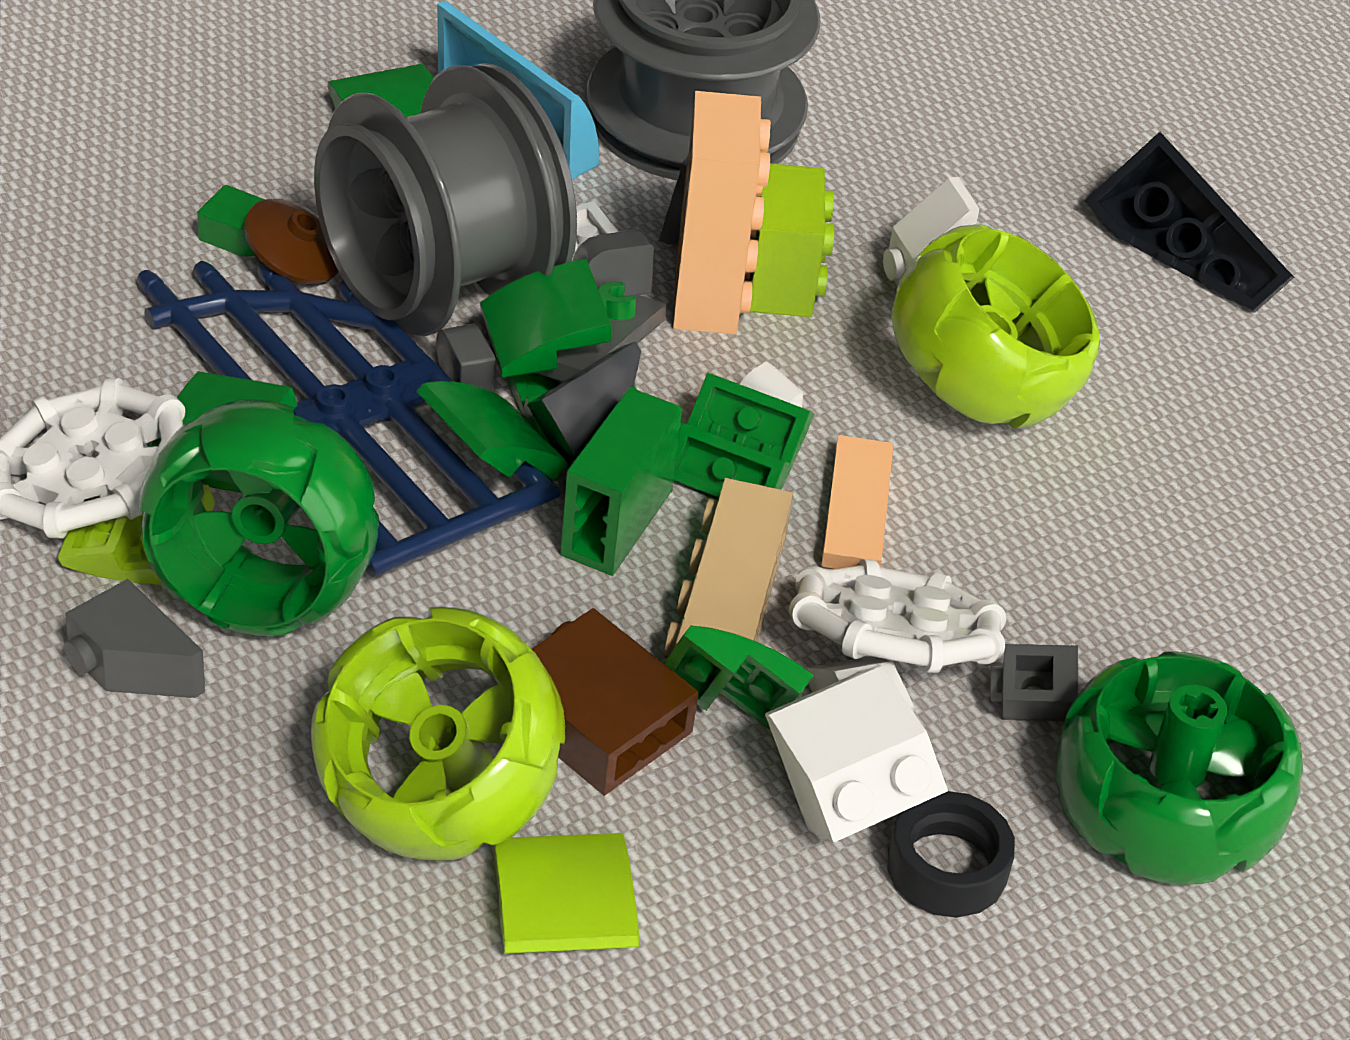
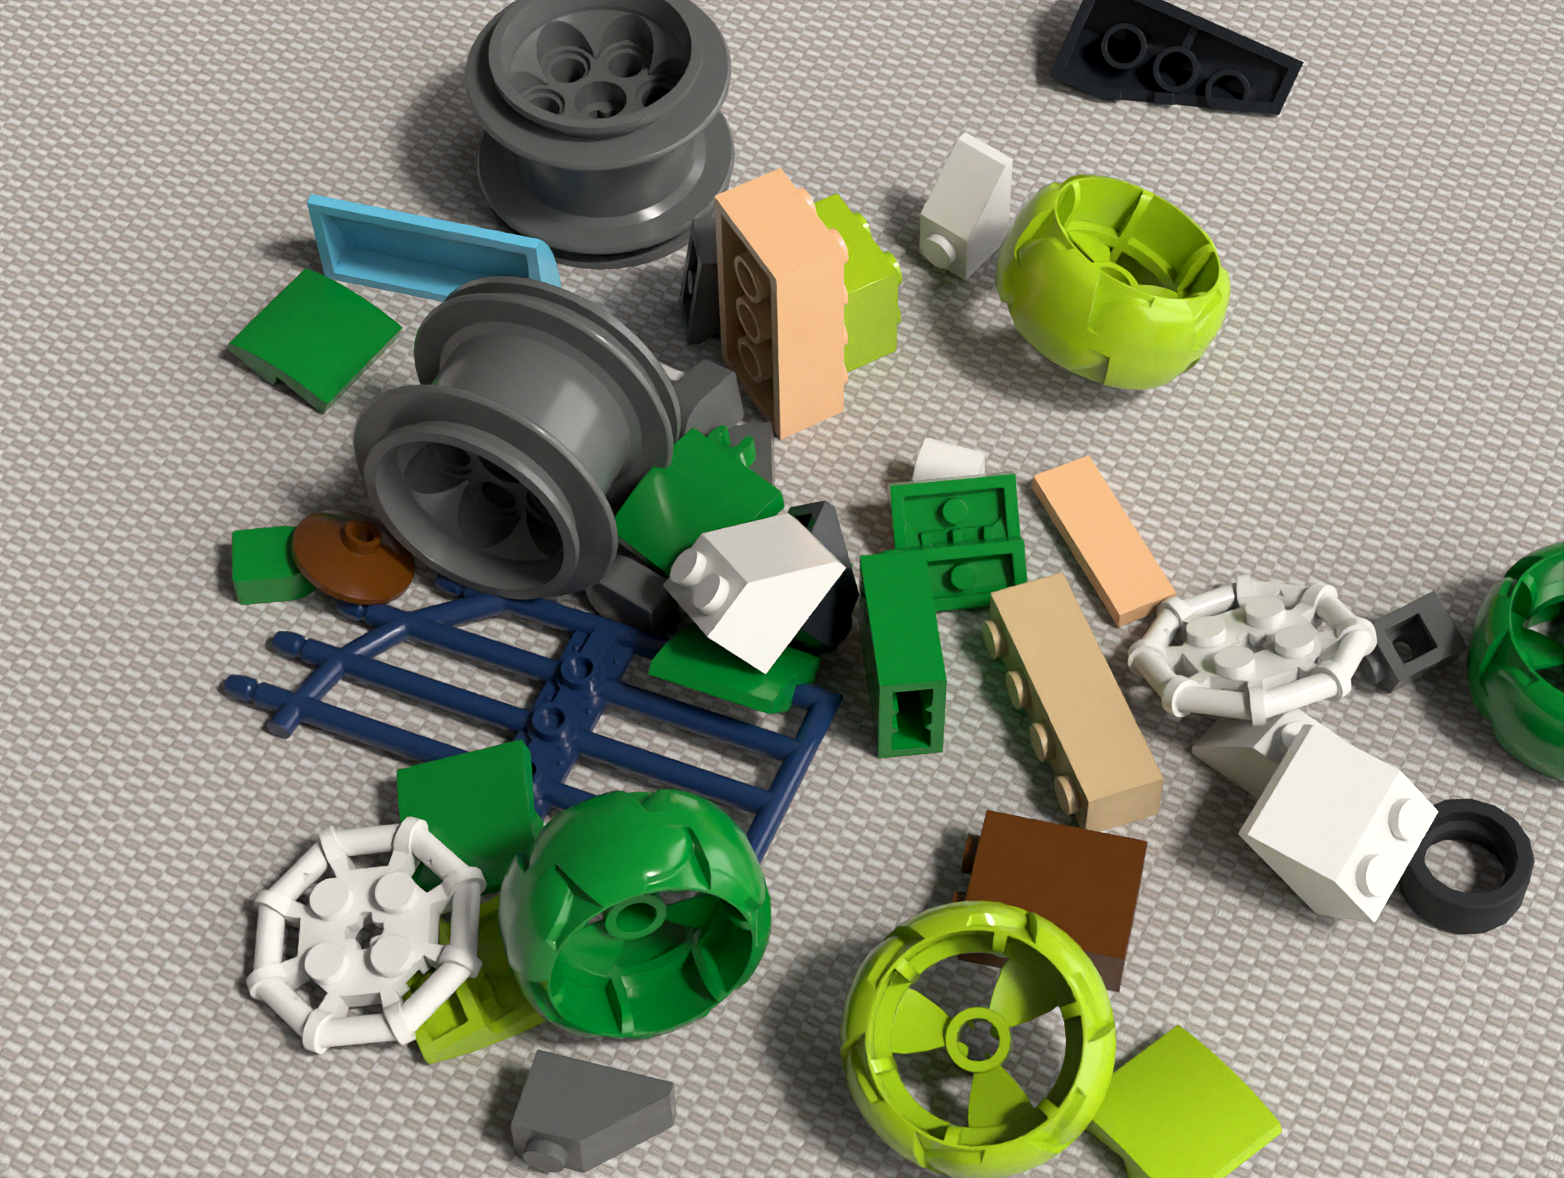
camera: 25 degrees left, 10 degrees up
(530, 367) = (754, 585): none -> white slope
(738, 668) = (1183, 801): green slope -> none

